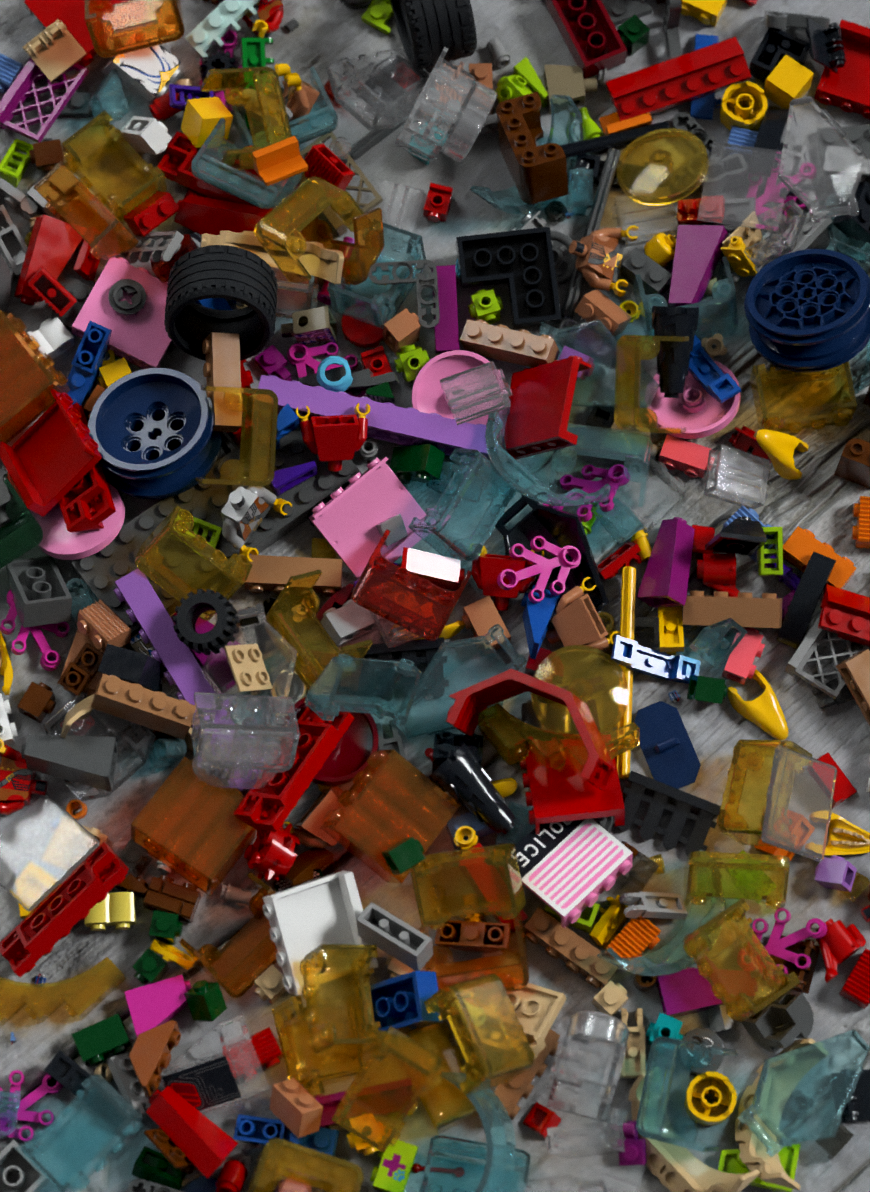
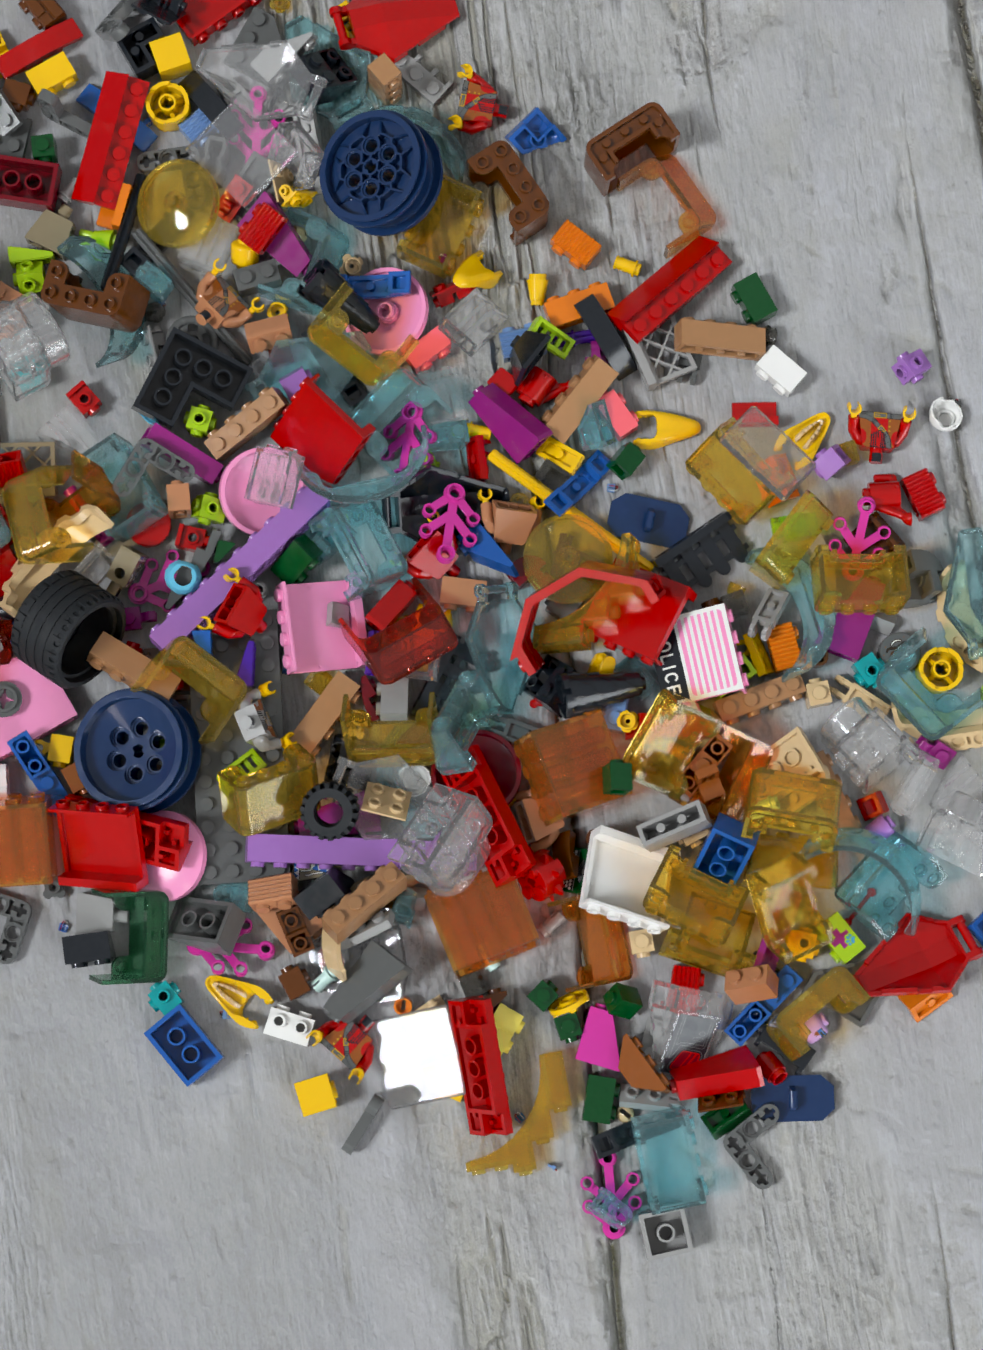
camera: 60 degrees left, 10 degrees up
(53, 724) = (323, 980): none -> light aqua pin
(132, 732) = (379, 923): none -> light grey hinge
(172, 898) = (523, 976): reddish brown brick -> none
(456, 950) = (709, 785): none -> dark orange slope
(526, 1140) = (882, 825): none -> medium lavender brick
(689, 244) = (262, 227): none -> red brick
(809, 514) = (537, 288): none -> yellow cone

